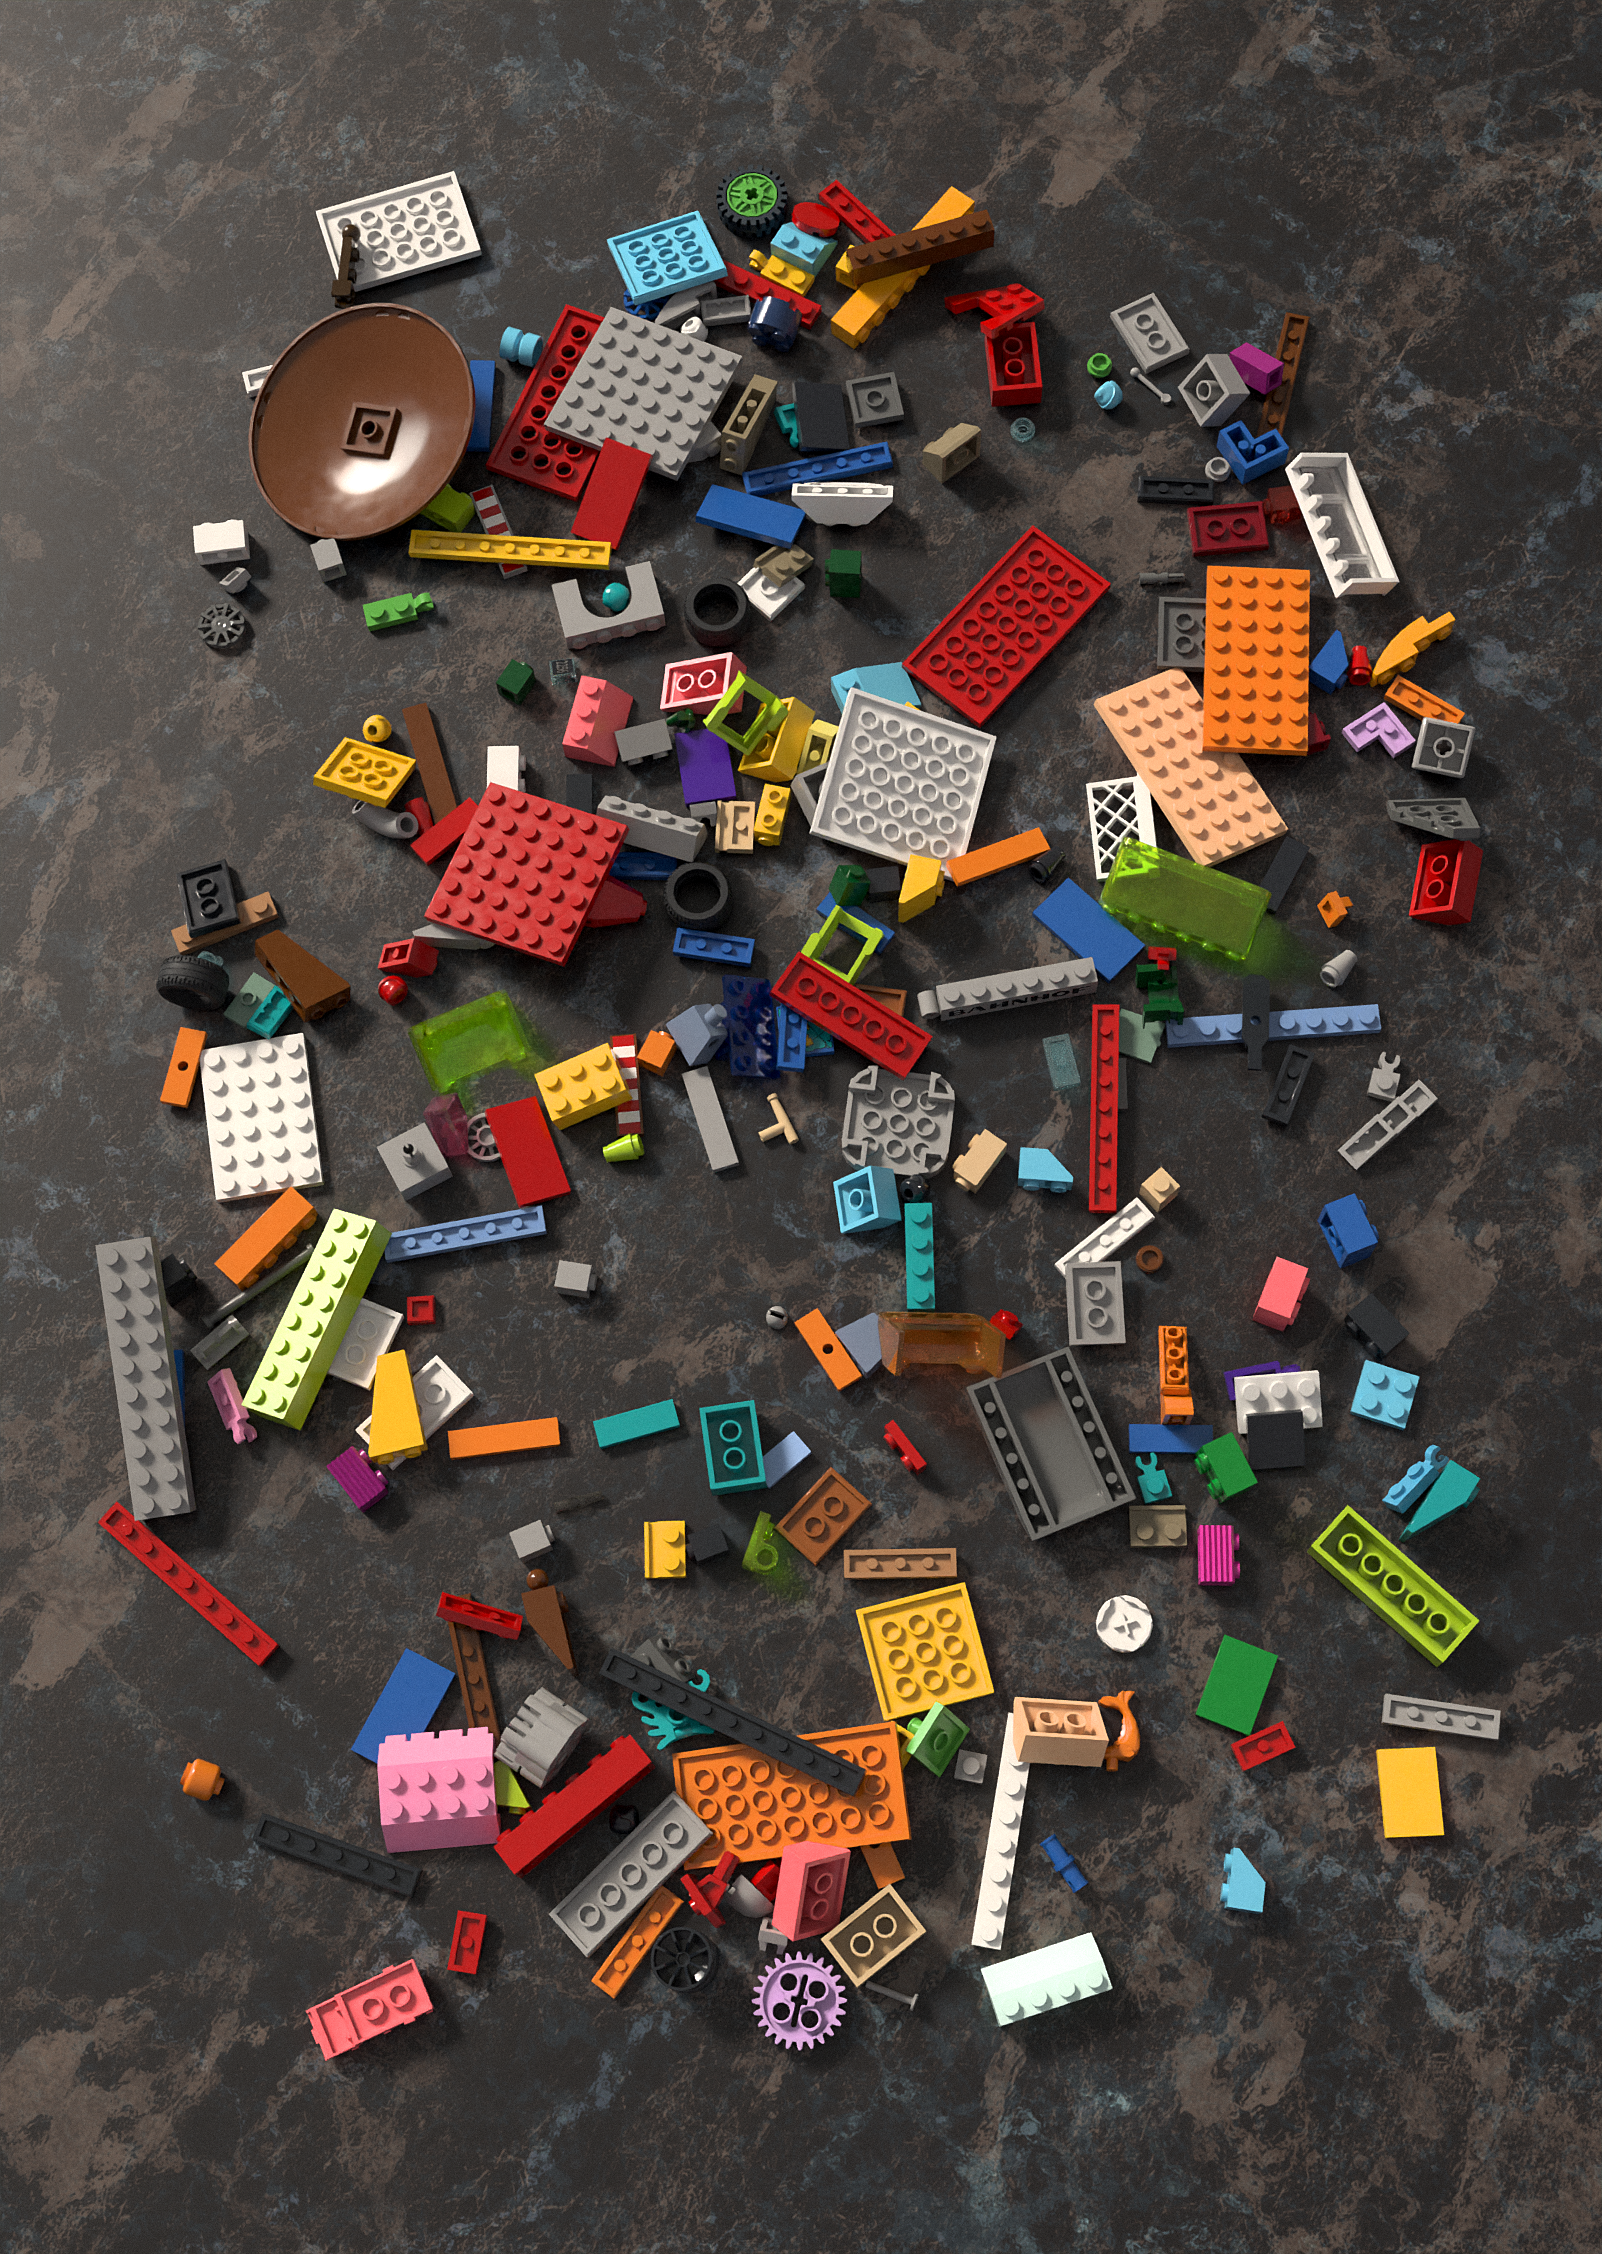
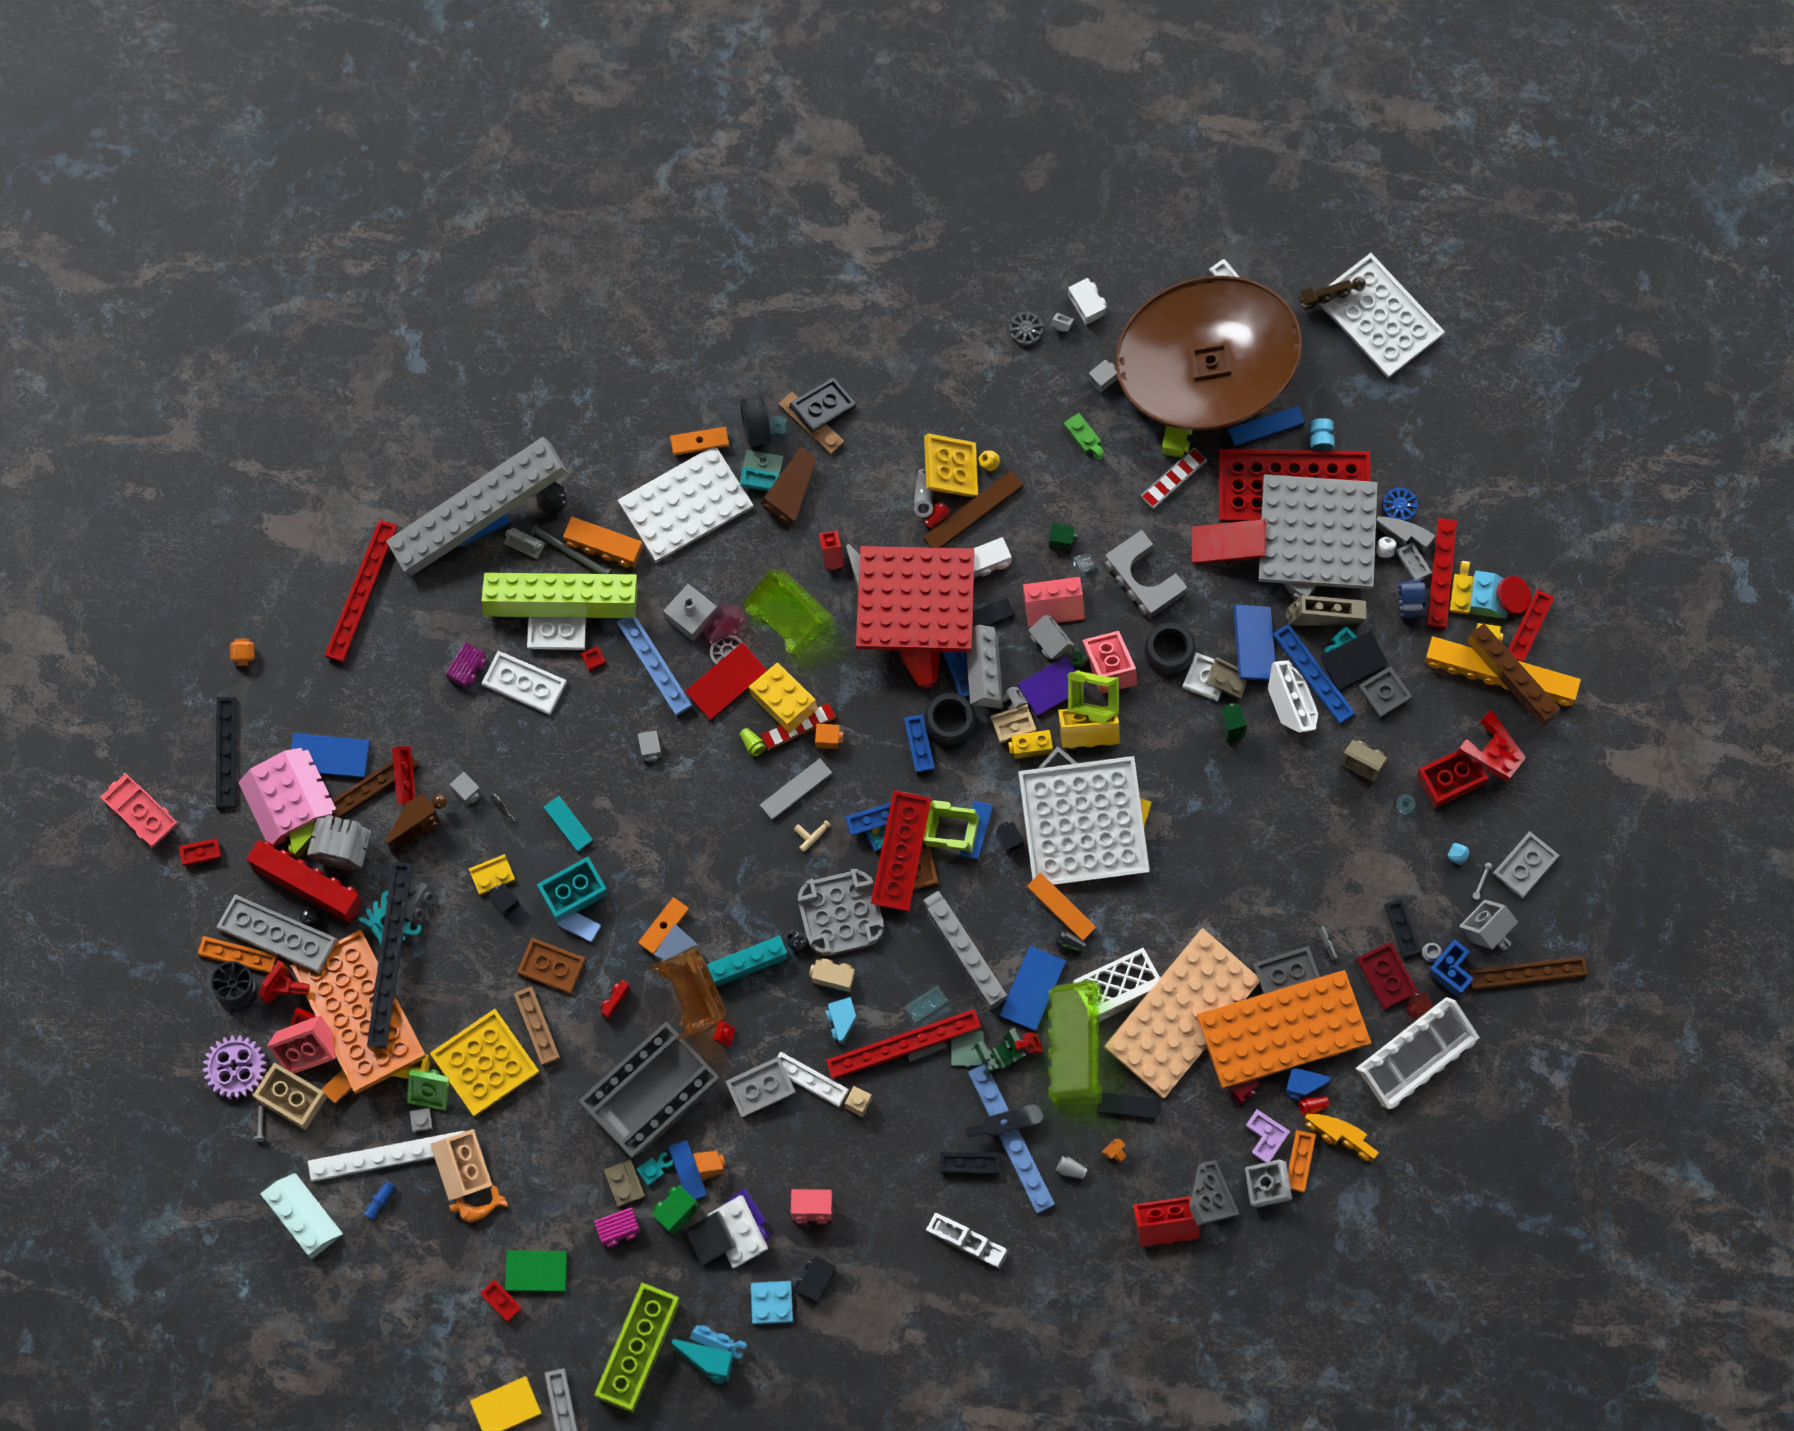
camera: 65 degrees right, 0 degrees up
(229, 1403) = (486, 565): bright pink plate -> none
(393, 990) = (805, 549): red piece -> none
(395, 1411) = (517, 669): yellow slope -> none
(445, 833) = (929, 535): red tile -> none
(504, 1438) = (527, 745): orange tile -> none
(510, 549) = (1158, 492): yellow plate -> none
(616, 597) = (1154, 576): teal piece -> none
(667, 257) = (1436, 504): medium azure tile -> none
(699, 1032) = (849, 757): sand blue torso -> none
(748, 1899) = (286, 1011): light grey brick -> none
(749, 1027) = (868, 787): clear blue bracket -> none
(752, 201) = (1498, 549): wheel -> none
(756, 1547) = (514, 930): clear neon green plate -> none
(770, 1934) = (267, 1032): light grey tile -> none
(775, 1322) = (679, 886): light grey hinge -> none
(818, 745) = (1093, 752): light yellow slope -> none
(849, 885) = (997, 814): dark green brick -> none
(867, 1200) = (777, 912): medium azure slope -> none
(884, 680) = (1156, 779): medium azure slope -> none
(920, 887) = (1013, 861): yellow slope -> none
(1006, 626) = (1242, 849): red plate -> none
(1099, 365) = (1482, 839): bright green plate -> none
(1124, 1624) = (550, 1184): white tile -> none
(1149, 1259) = (808, 1113): reddish brown tile -> none
(1173, 1360) = (730, 1152): orange tile -> none
(1244, 1884) = (405, 1319): medium azure slope -> none
(1257, 368) = (1522, 948): magenta brick -> none
(1348, 1230) = (874, 1236): blue brick -> none
(1383, 1081) = (998, 1228): light grey plate -> none

